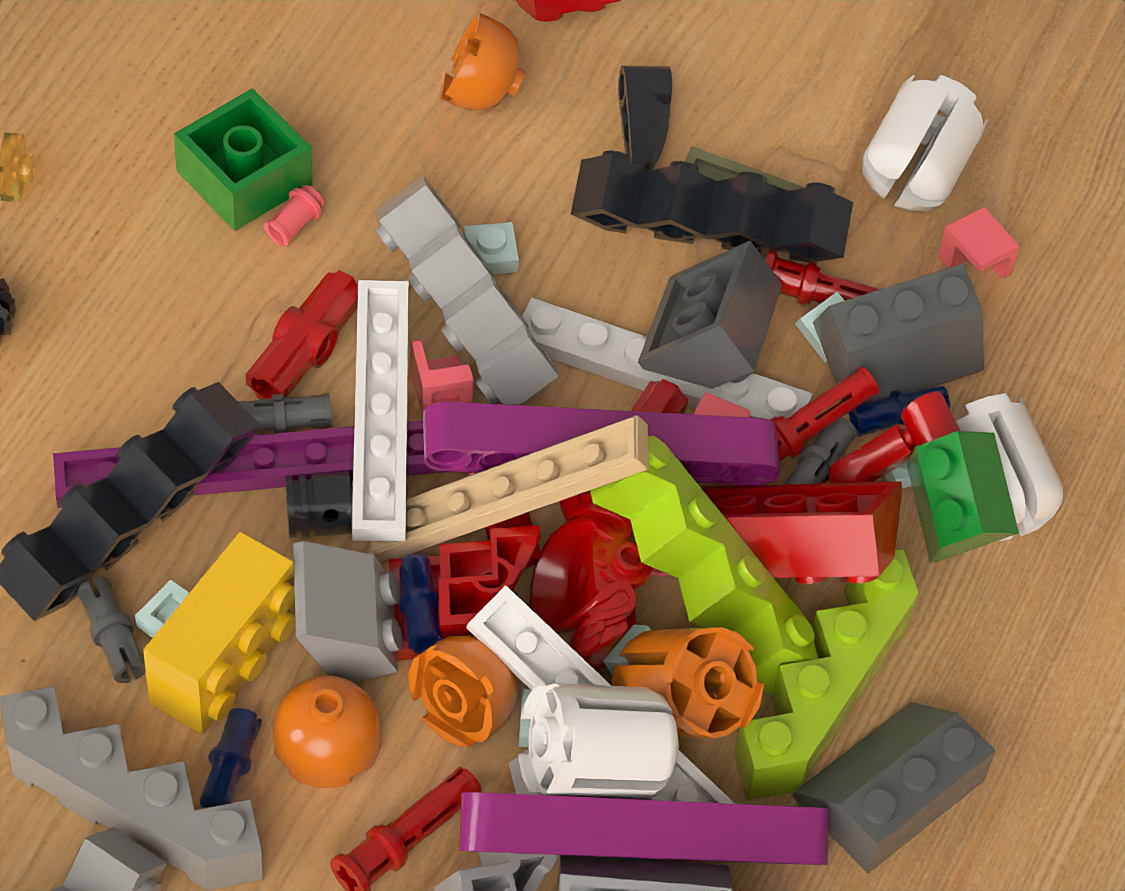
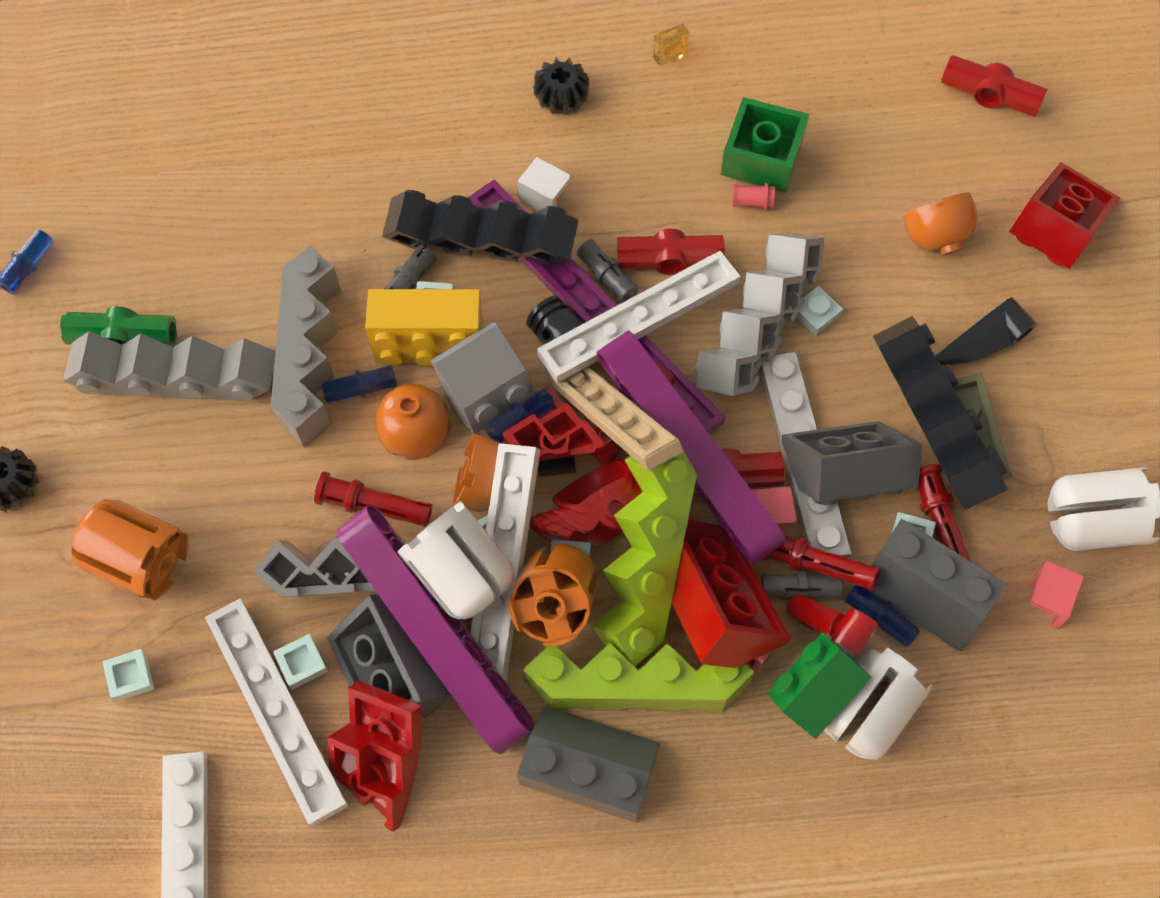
camera: 65 degrees right, 10 degrees up
(109, 409) = (541, 184): none -> white panel
(439, 378) = (693, 335): coral panel -> none

